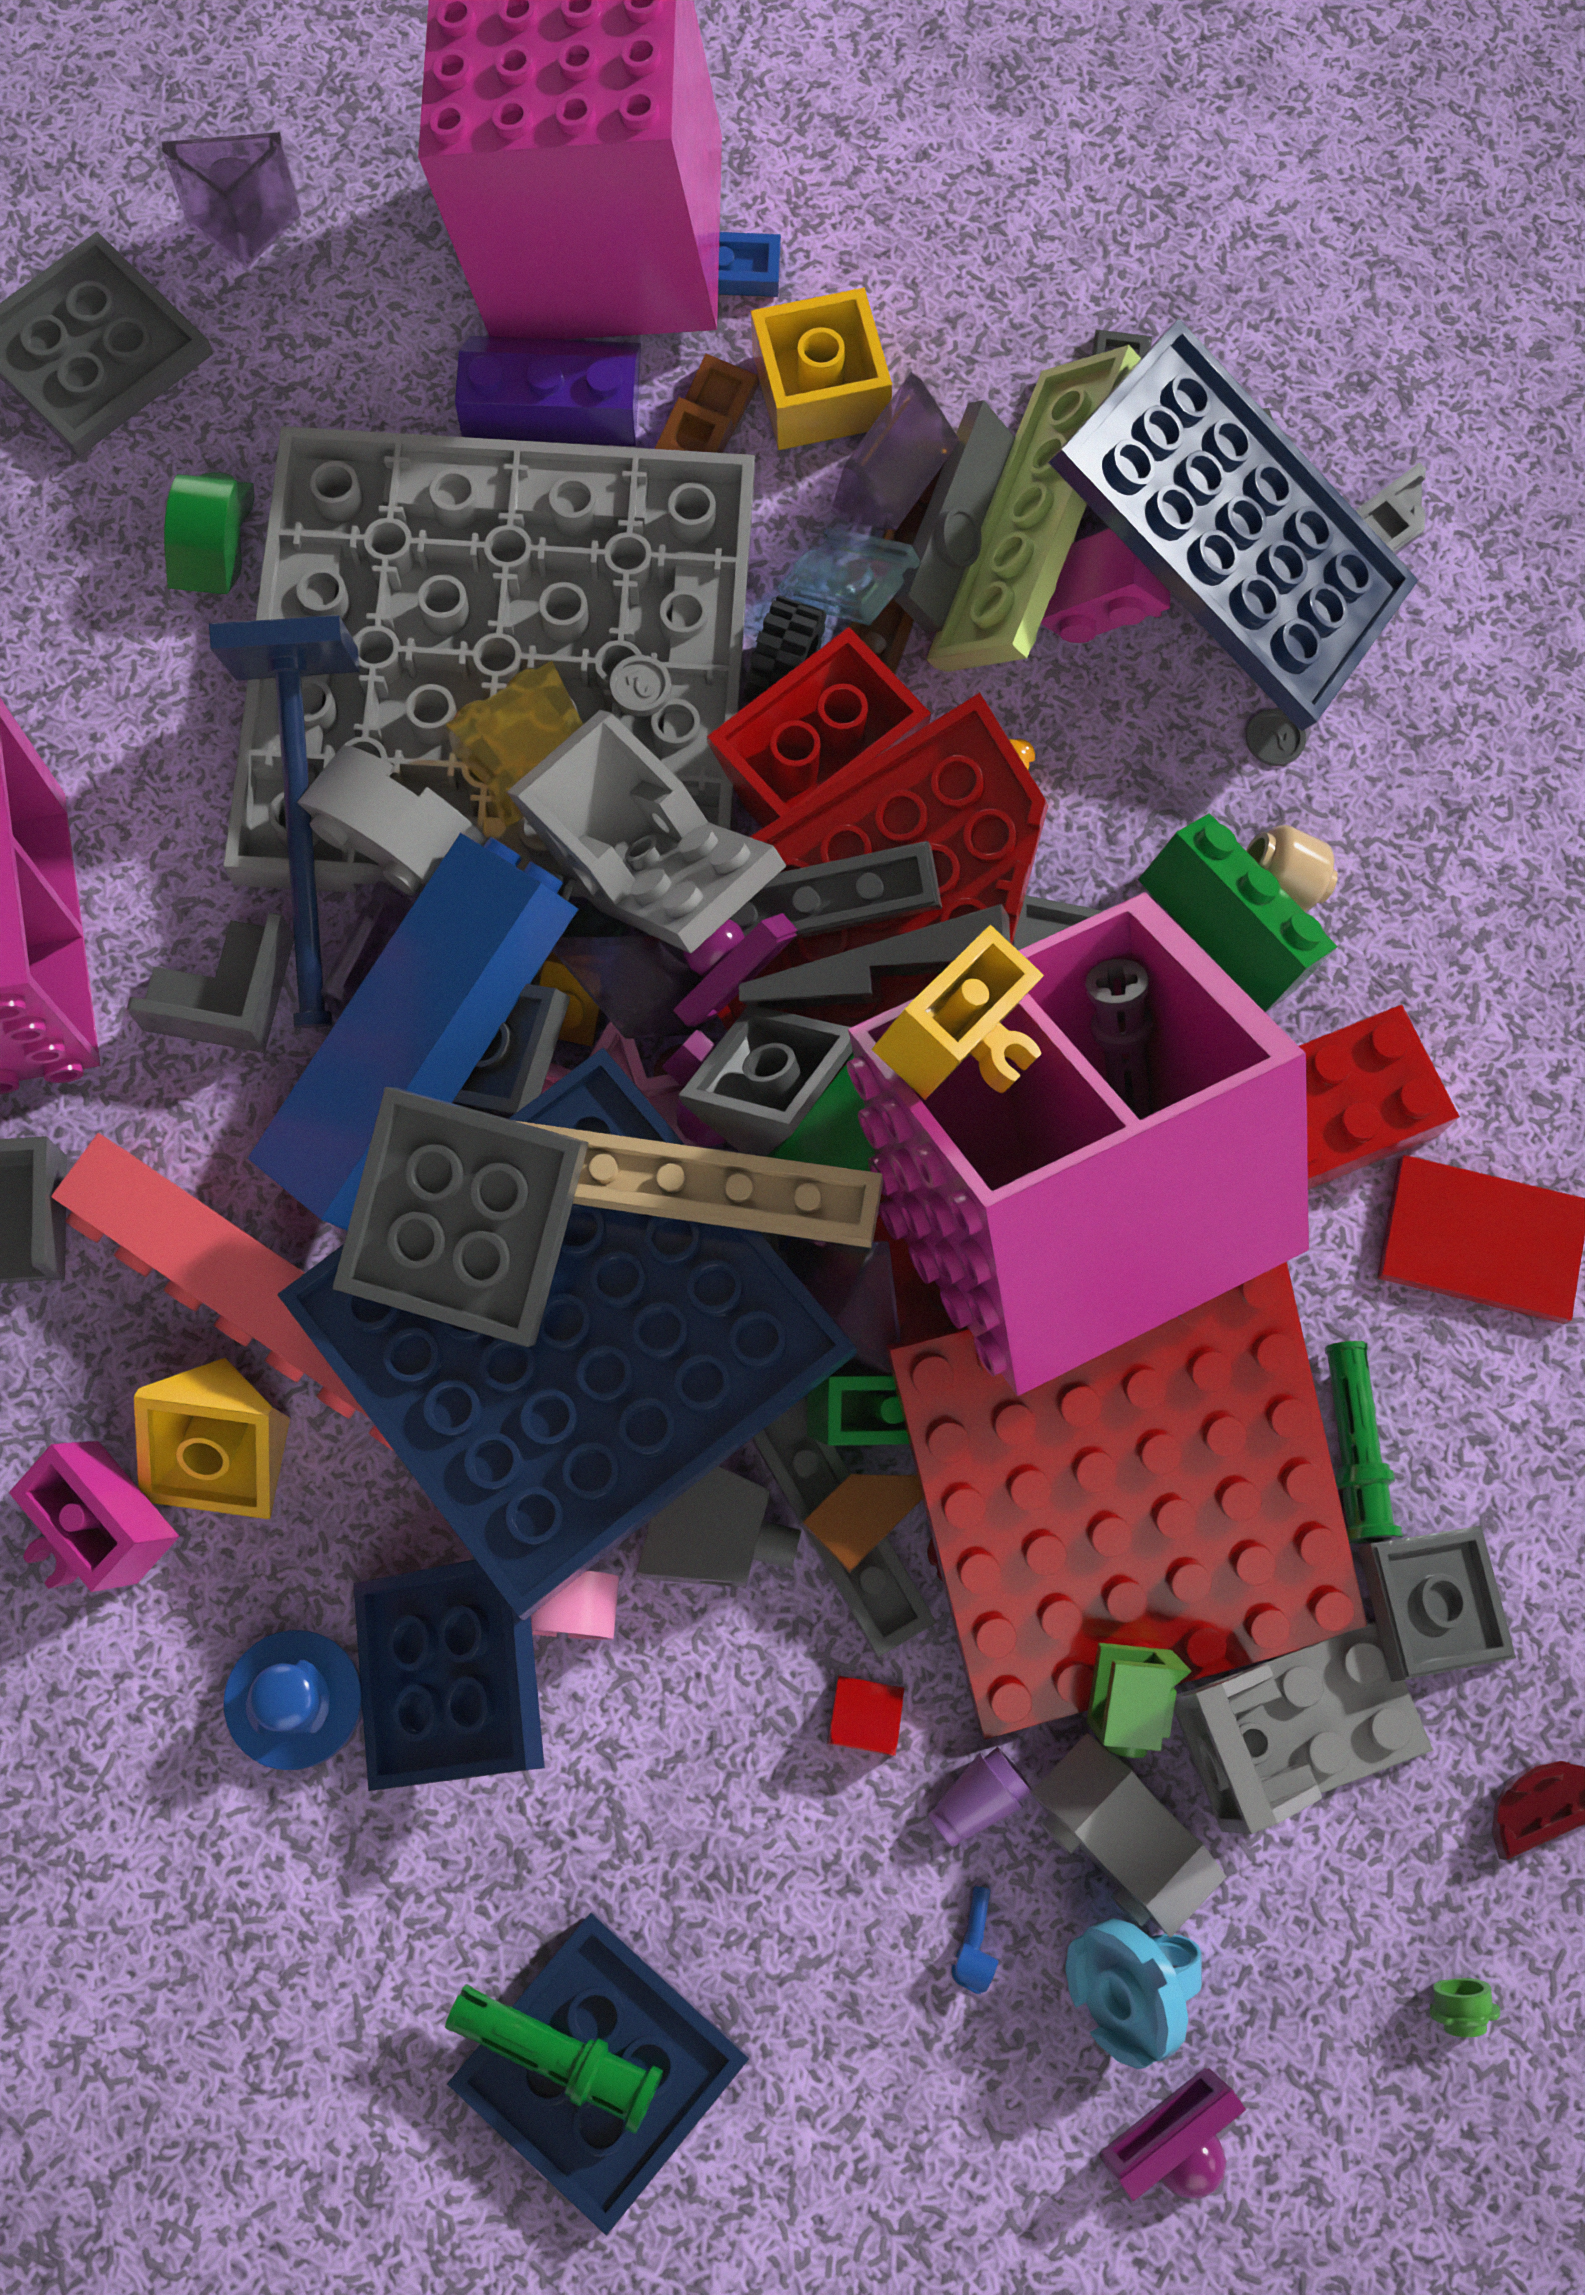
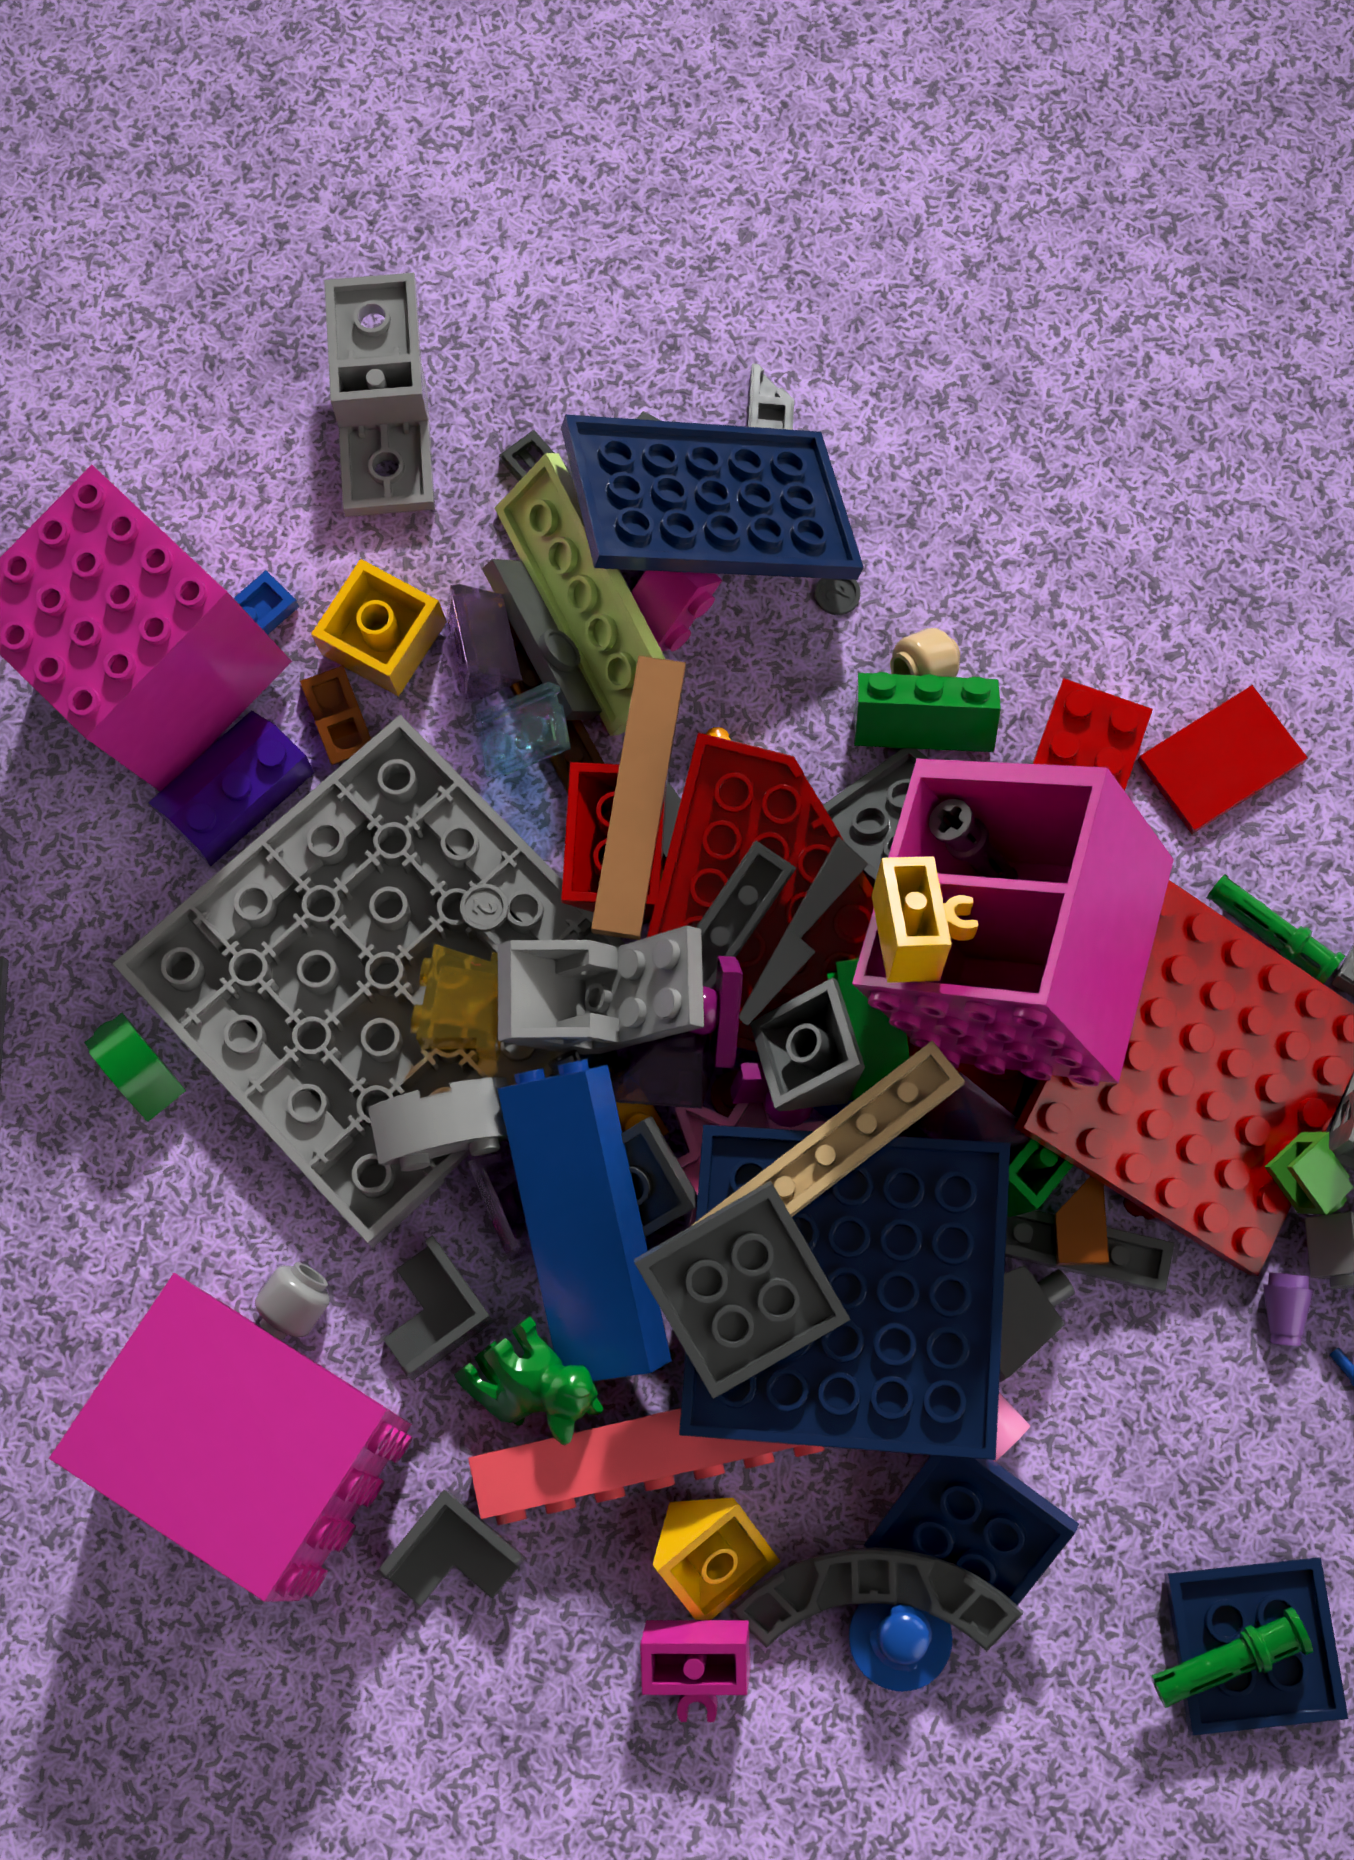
camera: 40 degrees left, 0 degrees up
(115, 856) = (292, 1301): none -> light grey head
(218, 1130) = (531, 1383): none -> green animal
(287, 652) = (287, 1092): dark blue tile -> none
(332, 1629) = (881, 1578): none -> dark grey tile
(788, 638) = (539, 809): black tyre -> none
(866, 1716) = (1189, 1328): red slope -> none
(873, 713) = (638, 798): none -> medium nougat tile
(1042, 171) = (379, 394): none -> light grey bracket

